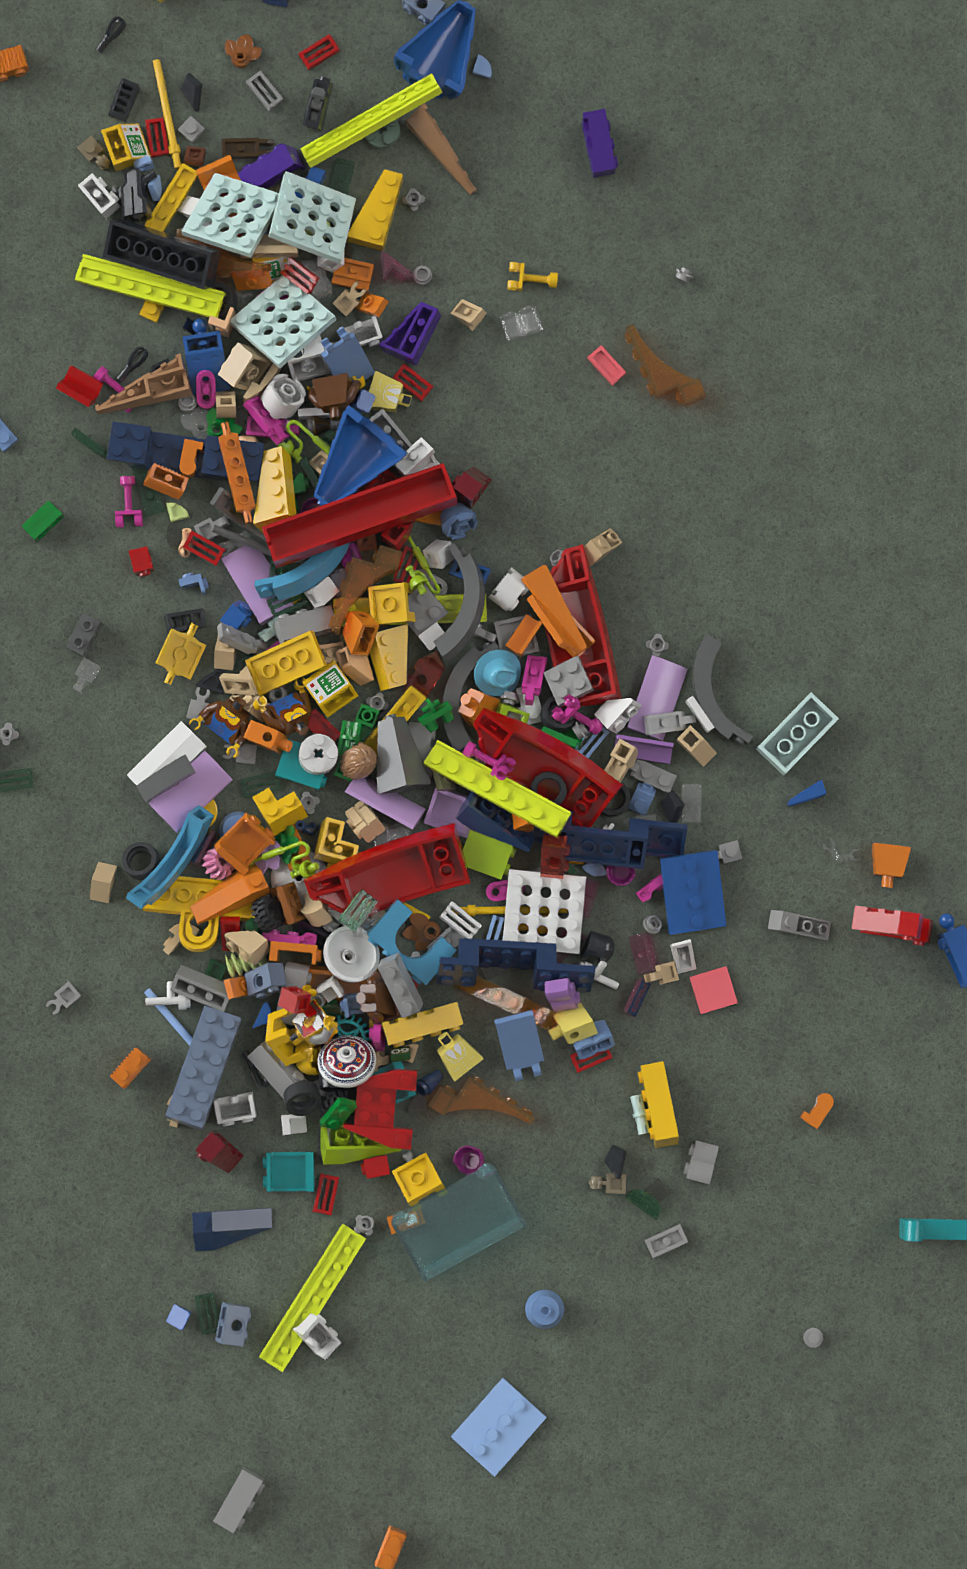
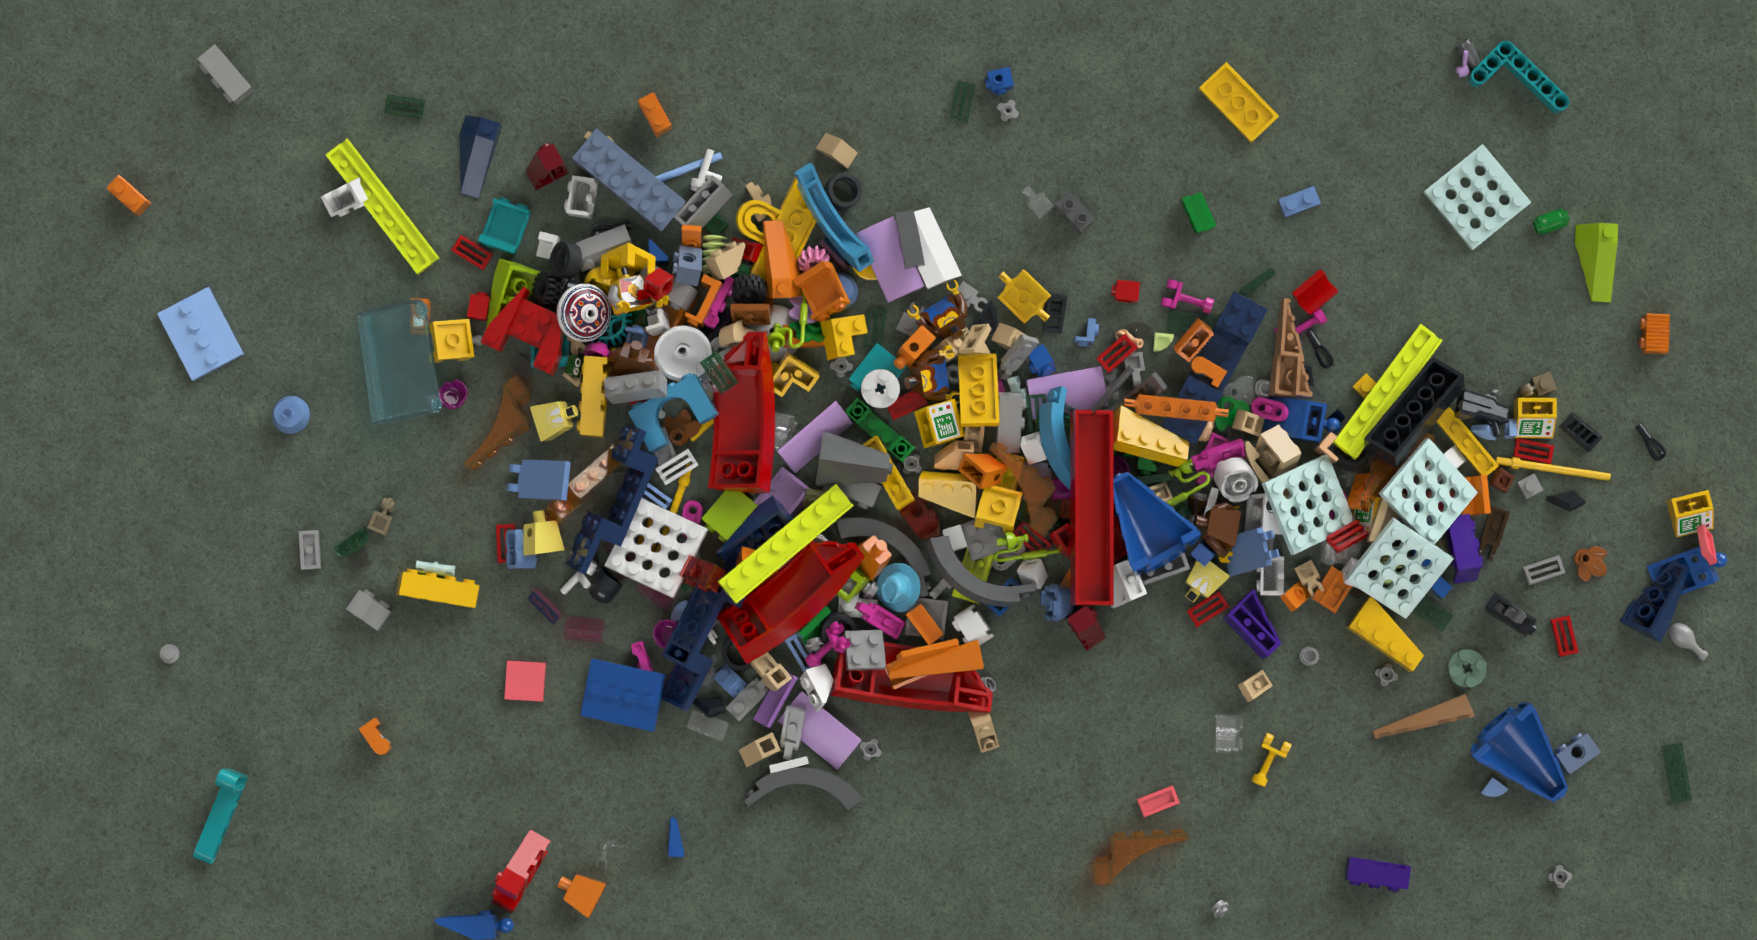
camera: 110 degrees right, 0 degrees up
(65, 996) = (743, 79): light grey plate -> none
(99, 196) = (1493, 375): white brick -> none
(178, 1317) = (411, 79): slope -> none
(228, 1314) = (396, 125): sand blue brick -> none
(310, 829) = (817, 354): dark blue arm -> none
(338, 1113) = (539, 288): green plate -> none
(349, 736) = (885, 424): green hips -> none
(358, 761) = (859, 424): medium nougat hair -> none
(364, 822) = (801, 410): tan brick -> none
(368, 1221) = (431, 282): light grey plate -> none
(371, 120) = (1476, 660): neon yellow plate -> none
(390, 265) = (1328, 627): clear pink slope -> none
(428, 1083) = (538, 383): dark blue cone -> none
(442, 710) = (881, 510): green hips -> none
(498, 765) = (805, 553): dark pink bar -> none
(554, 776) = (775, 605): black tyre -> none
(562, 994) = (571, 534): medium lavender brick -> none
(615, 1160) = (401, 530): black piece -> none
(652, 924) = (607, 645): light grey plate -> none
(664, 973) = (557, 640): tan plate -> none
(683, 956) = (567, 664): white slope -> none
(729, 852) = (648, 744): light grey plate -> none
(797, 733) = (736, 850): light aqua brick -> none
(799, 925) = (555, 784): light grey slope -> none

